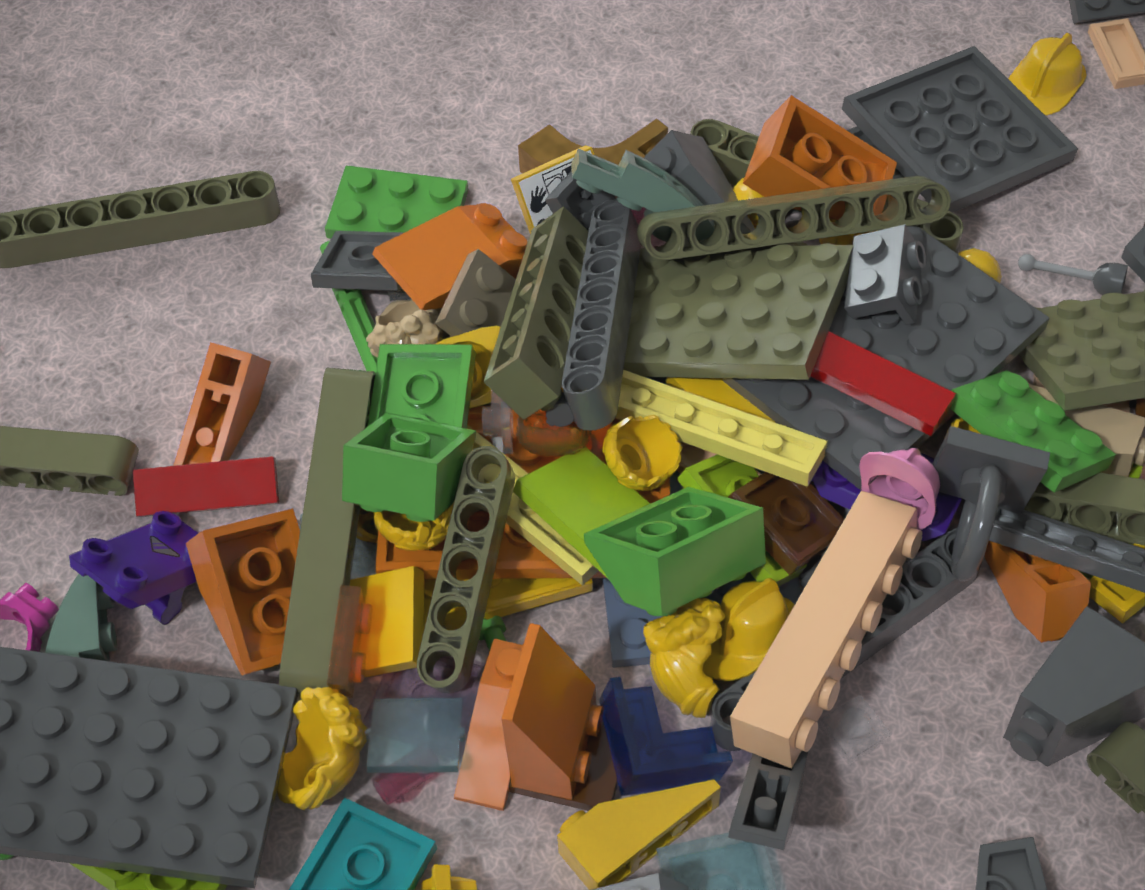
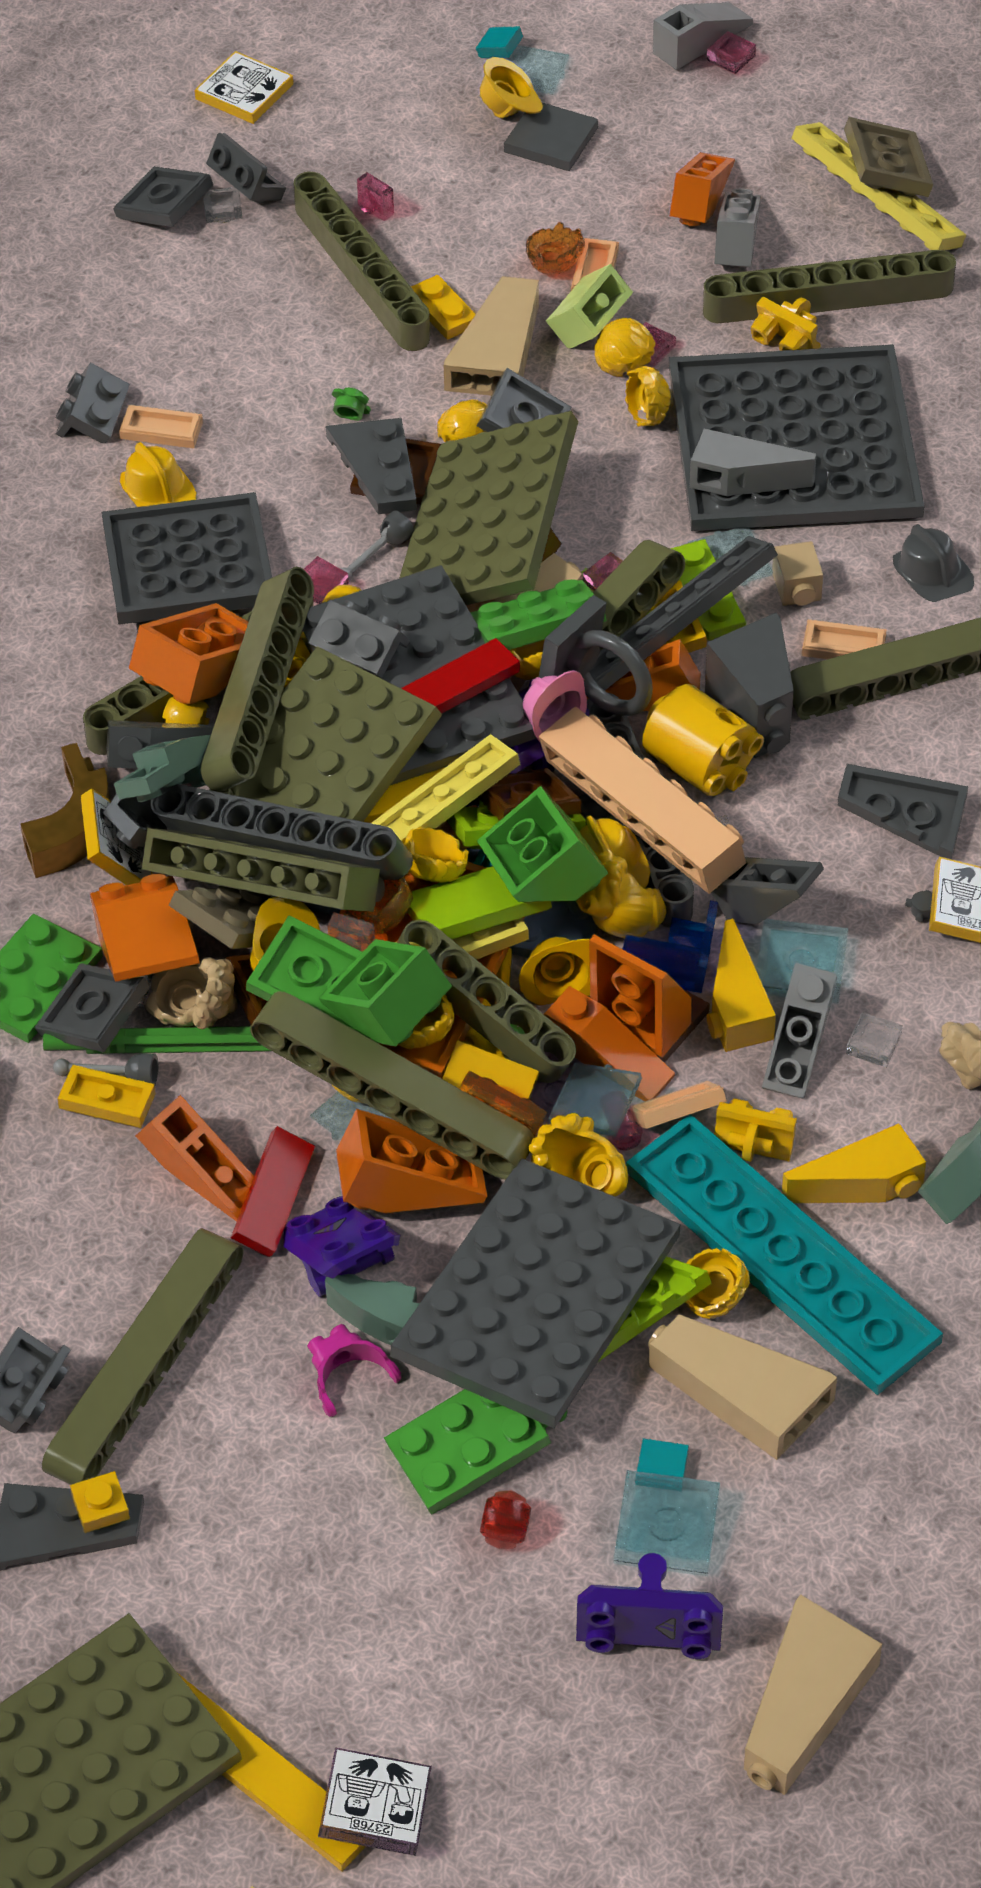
camera: 70 degrees left, 5 degrees down
(275, 314) = (106, 1096): none -> yellow plate
(316, 328) = (139, 1067): none -> dark grey hinge
(447, 825) = (678, 1104): none -> light nougat tile
(583, 633) = (555, 967): none -> yellow piece
(968, 662) = (700, 740): none -> yellow cylinder
(1002, 241) = (325, 577): none -> clear pink plate

